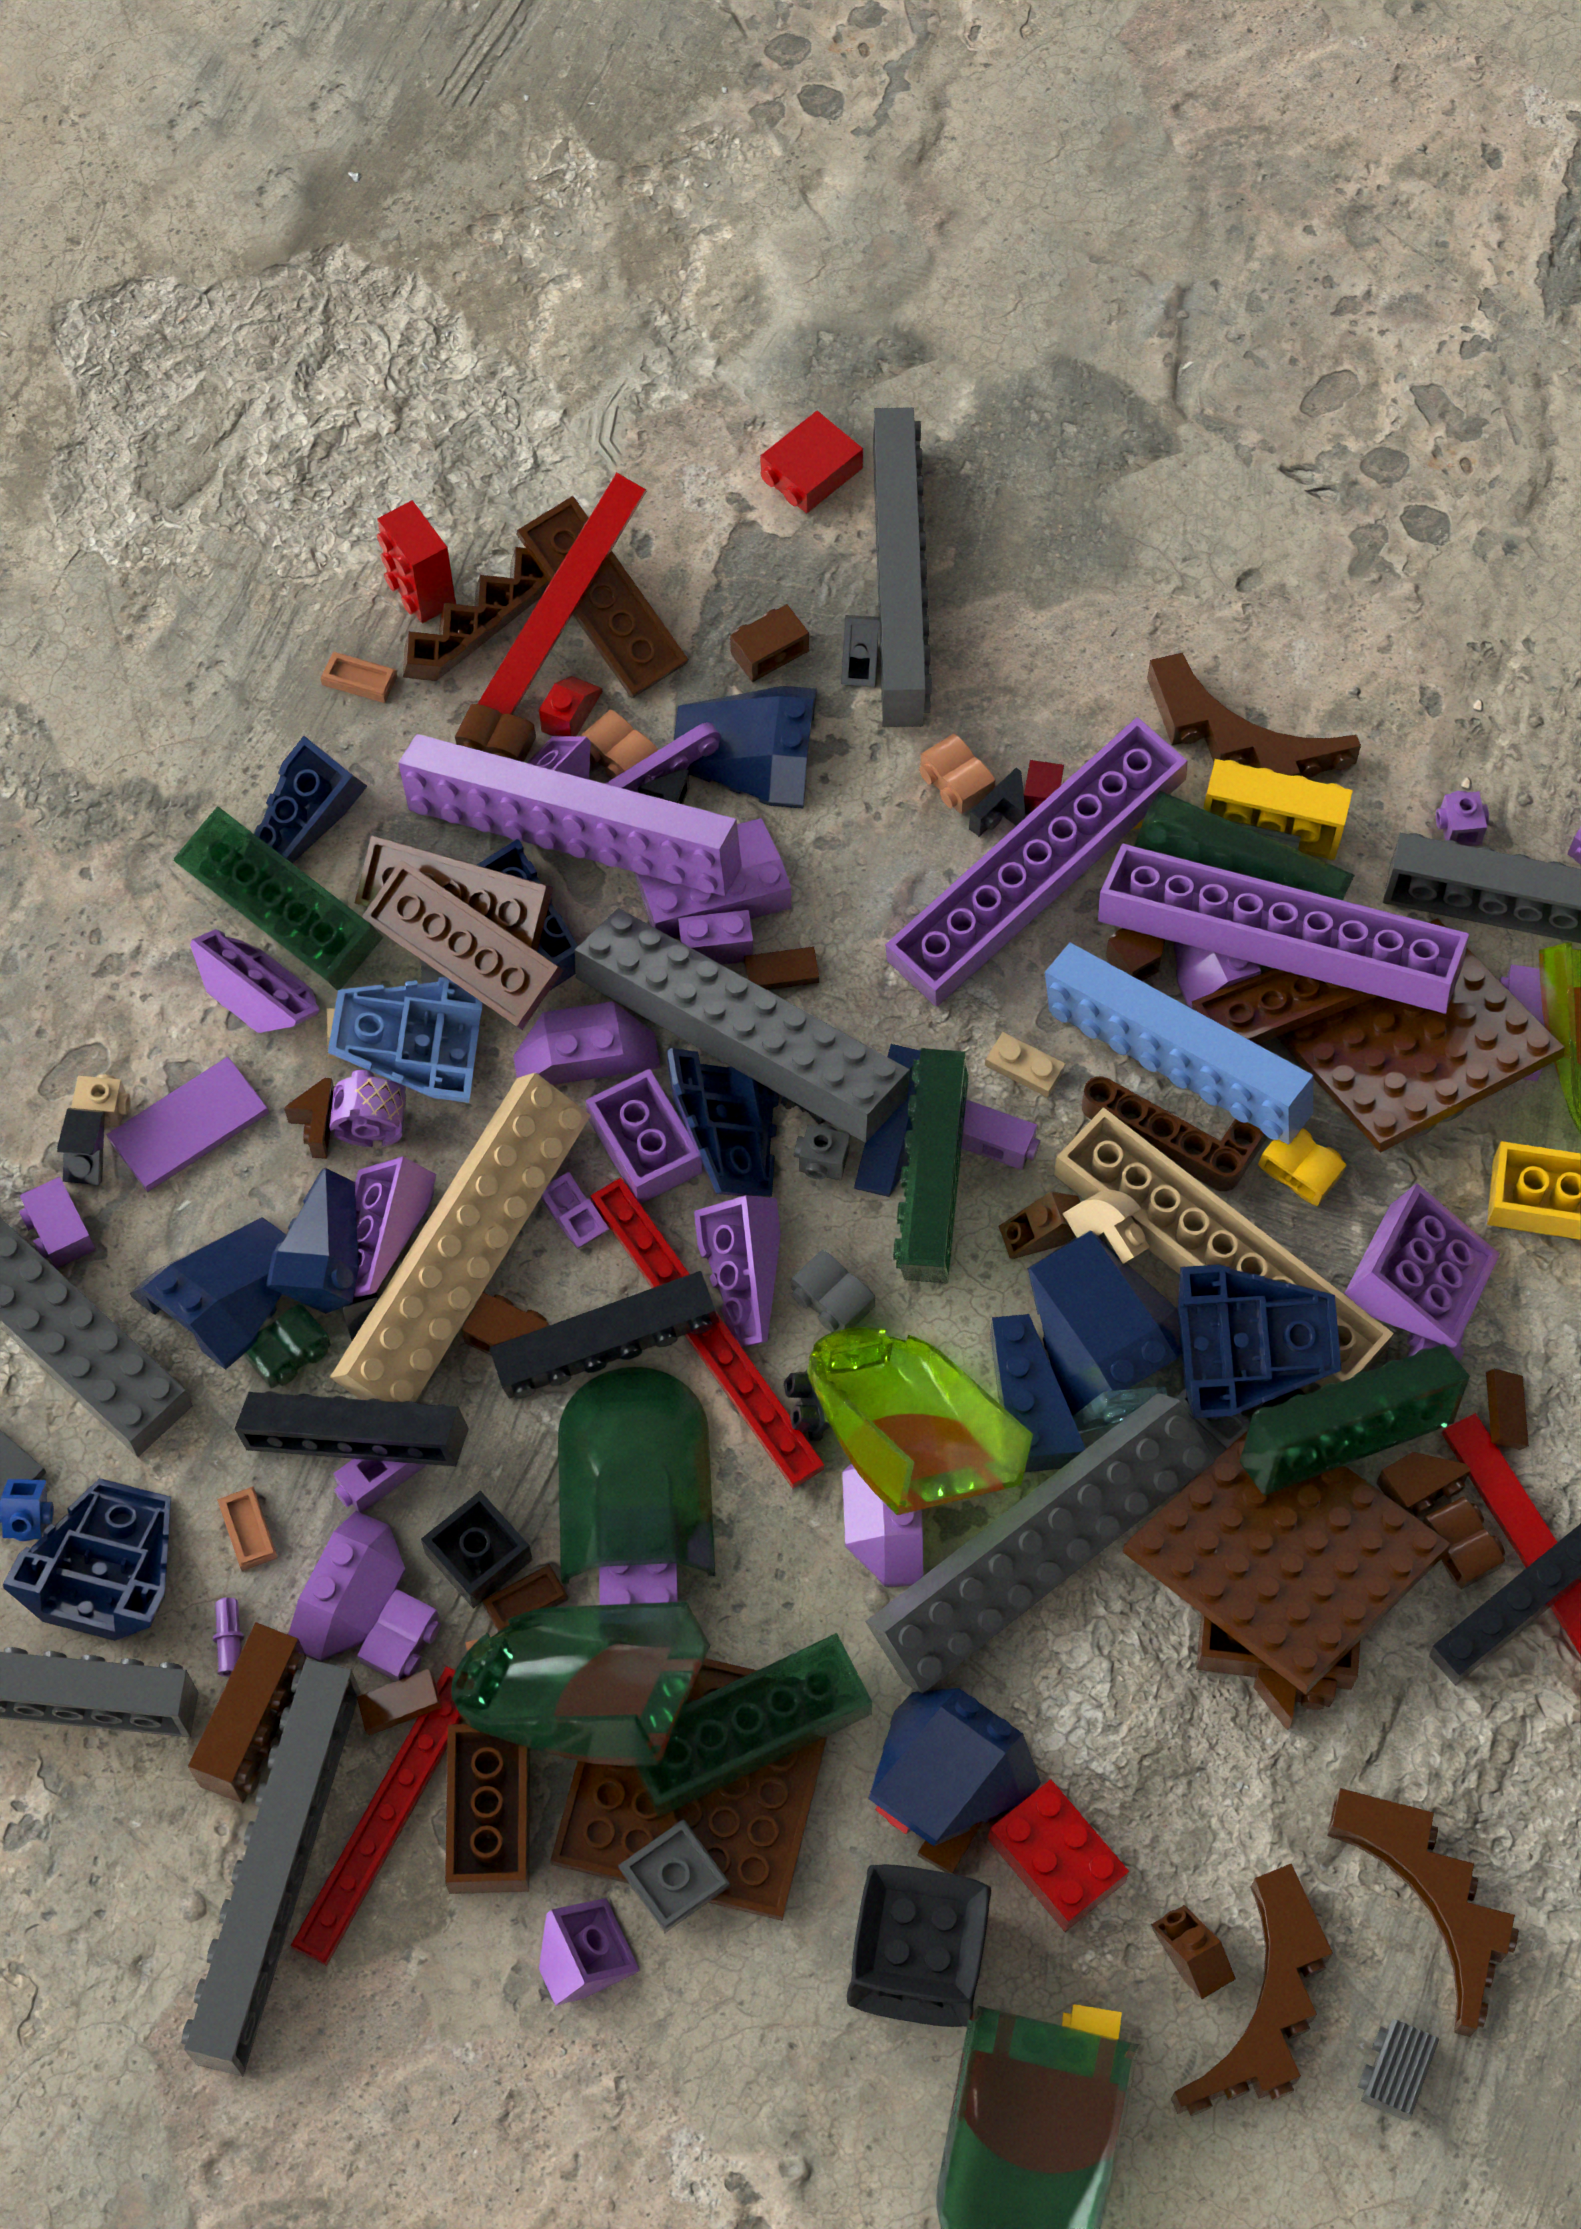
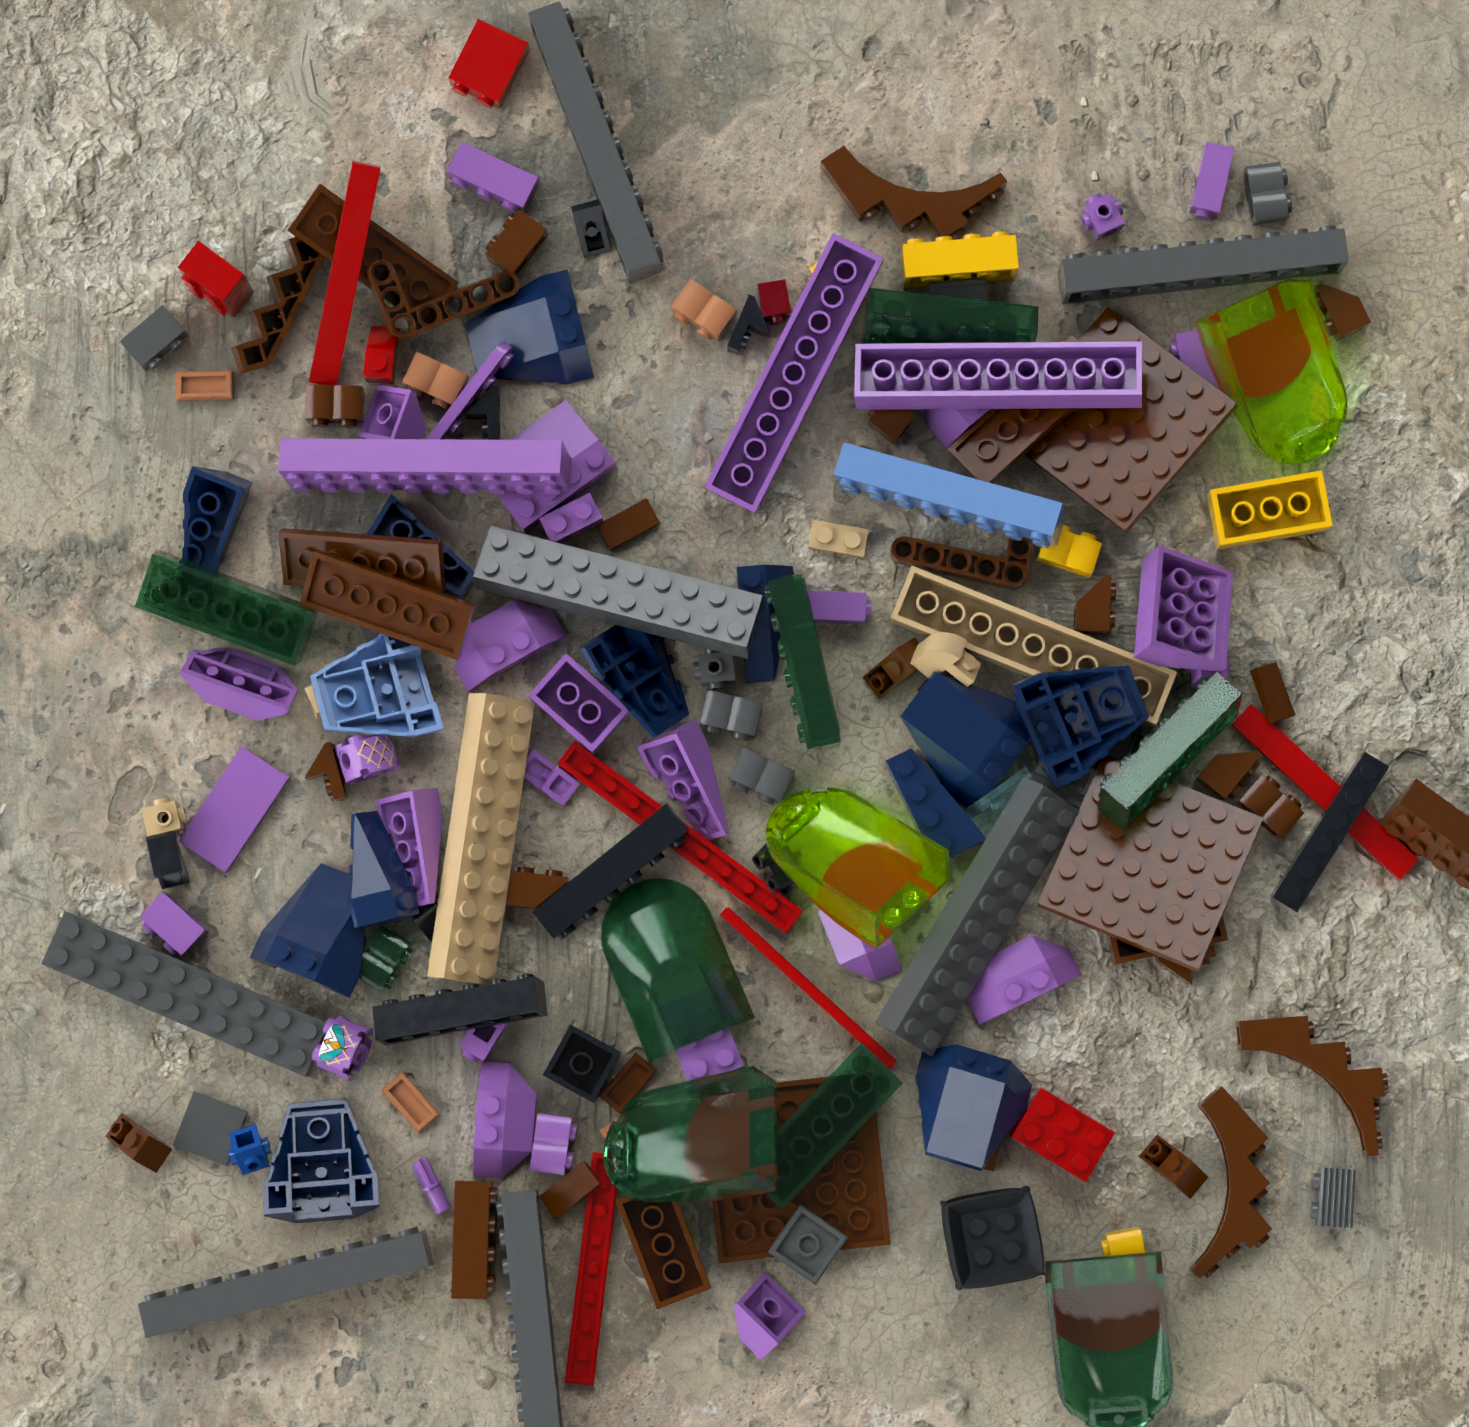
camera: 20 degrees left, 20 degrees up
(192, 1427) = (343, 1047): none -> medium lavender brick
(324, 610) = (154, 339): none -> dark grey brick
(654, 665) = (437, 304): none -> reddish brown beam
(769, 569) = (492, 178): none -> medium lavender brick
(790, 1548) = (807, 987): none -> red tile
(822, 1211) = (731, 715): none -> dark grey brick
(1070, 1640) = (1020, 975): none -> medium lavender wedge
(1312, 1234) = (1093, 611): none -> reddish brown slope

